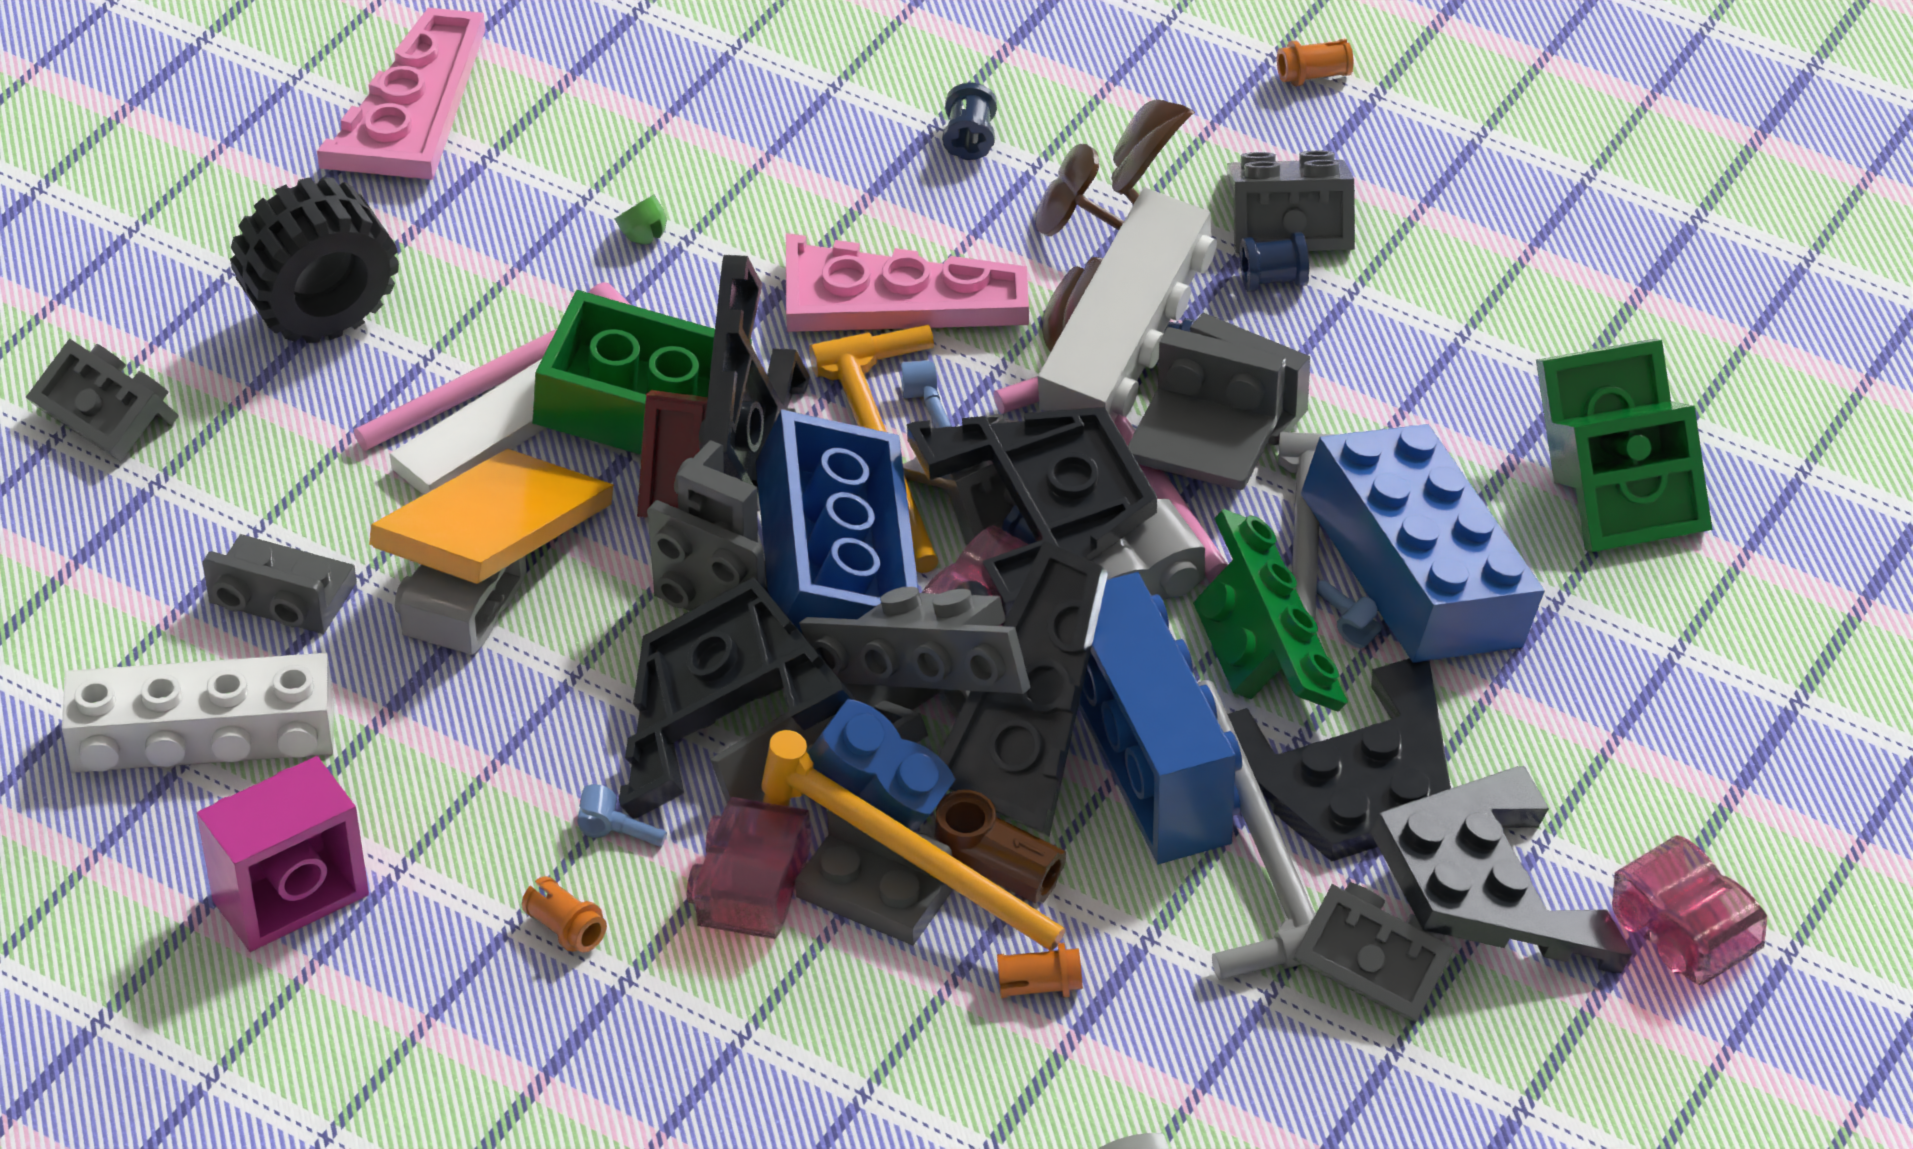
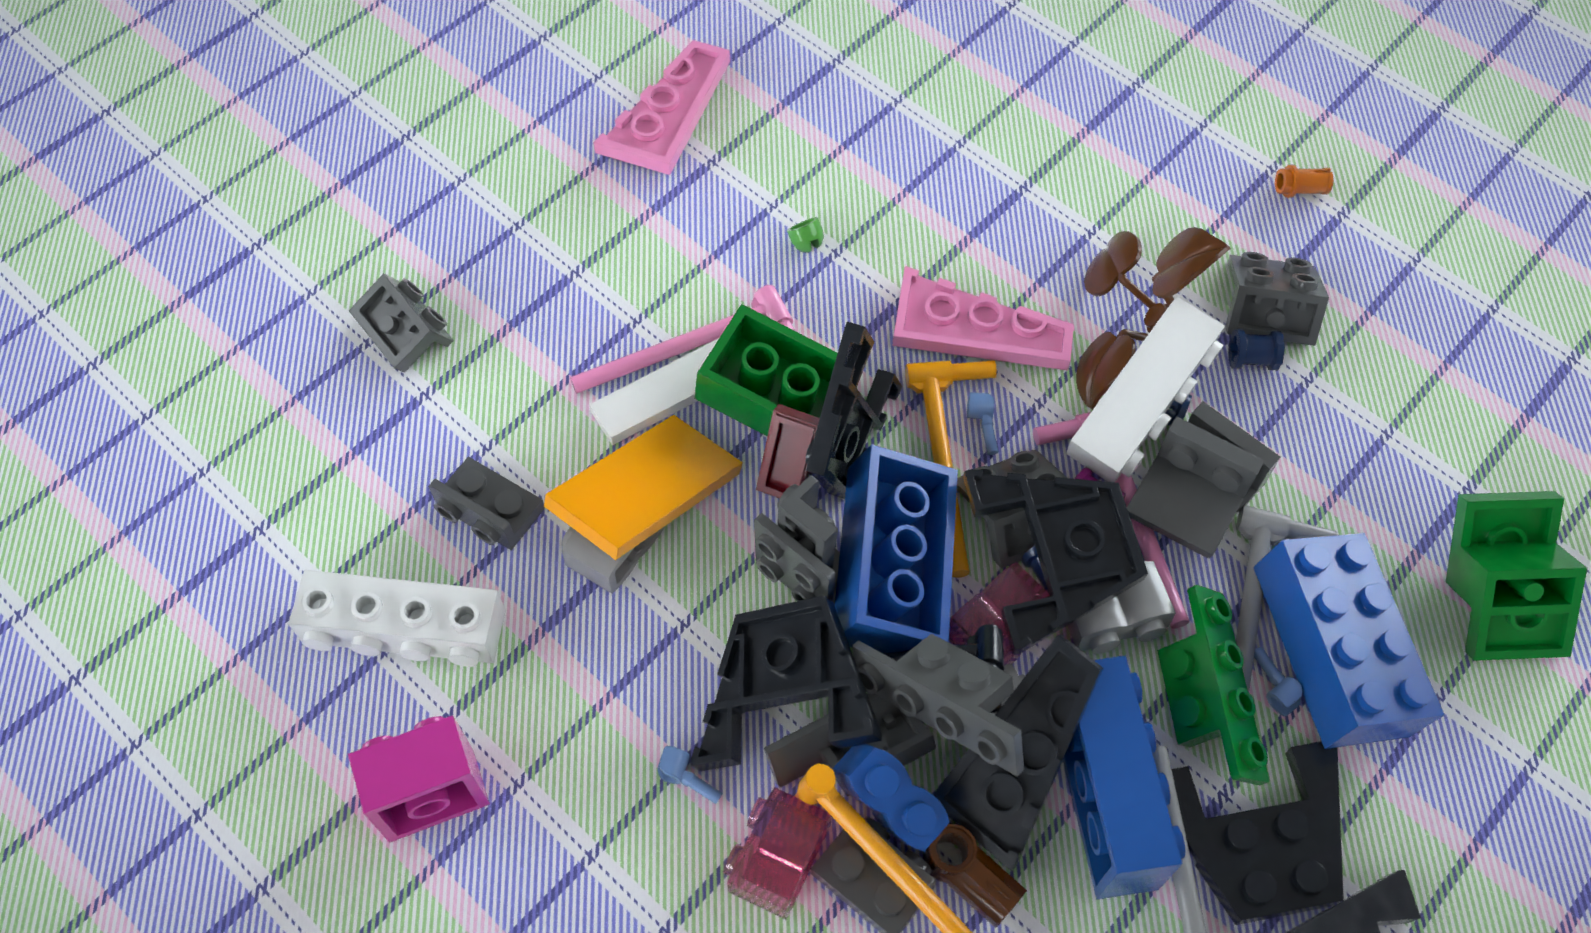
camera: 10 degrees right, 15 degrees up
(314, 260) = (565, 238): black tyre -> none
(576, 923) = (628, 867): orange pin -> none
(975, 119) = (1051, 191): dark blue bush -> none

